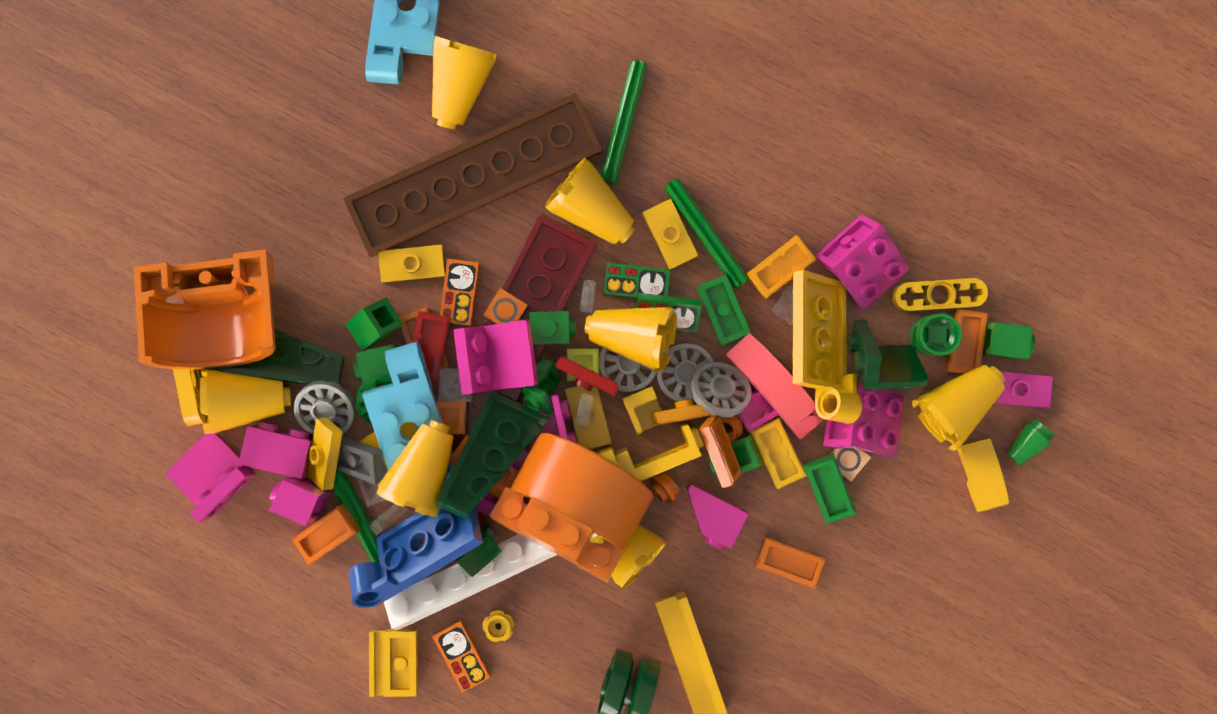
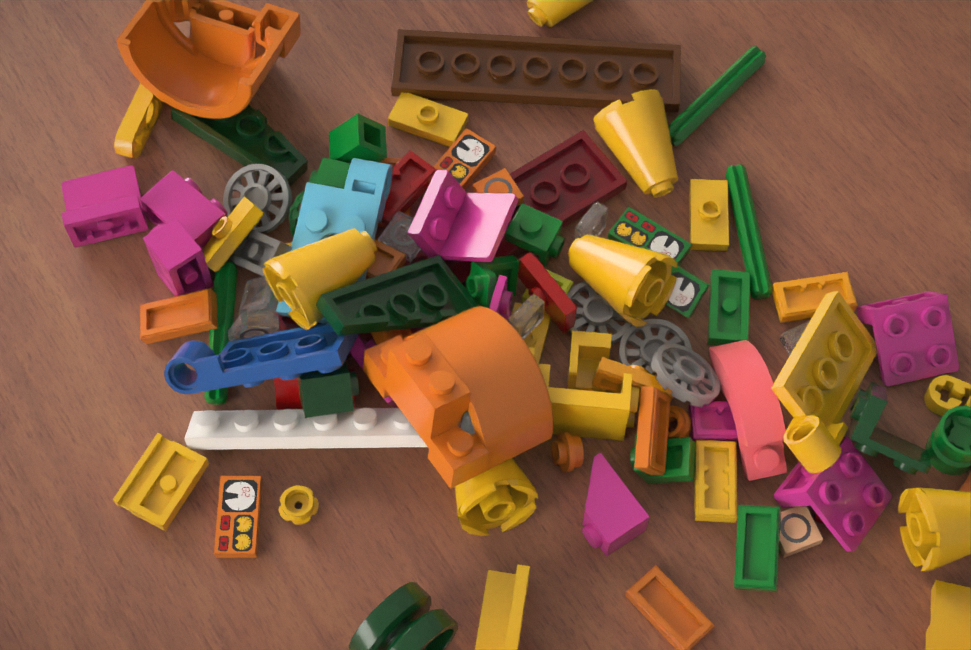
camera: 30 degrees right, 25 degrees down
(239, 399) = (179, 144): yellow cone -> none

